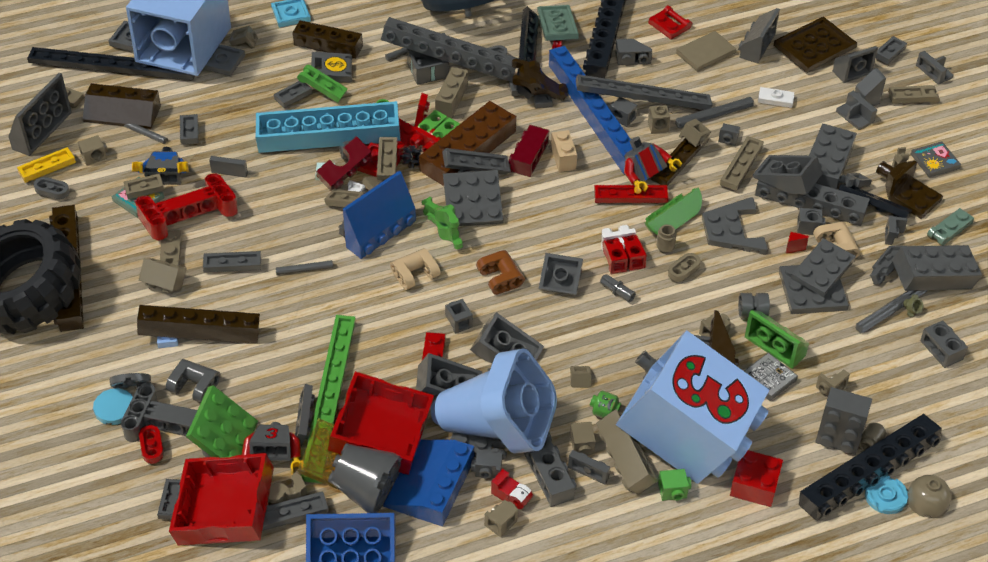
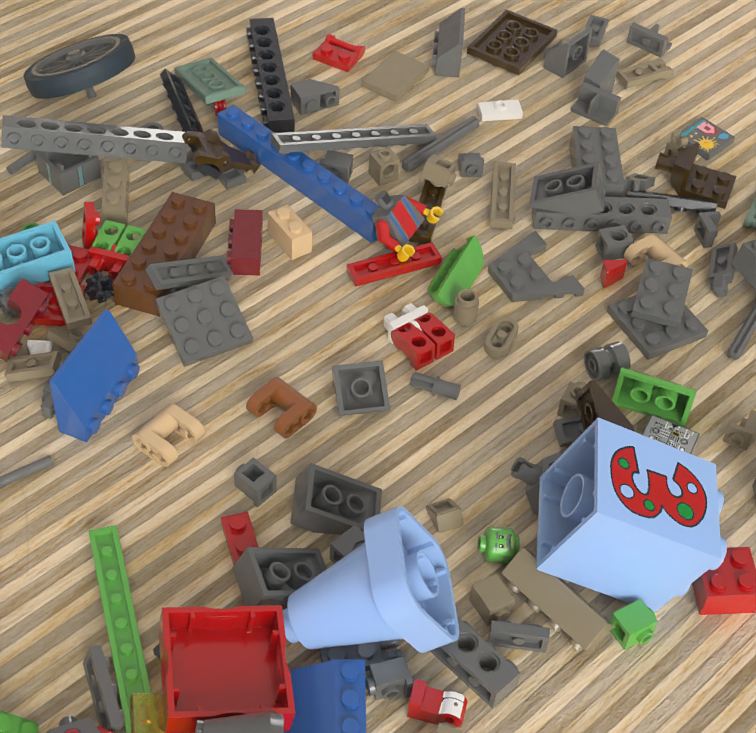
camera: 25 degrees left, 0 degrees up
(445, 220) = (182, 358): bright green animal -> none

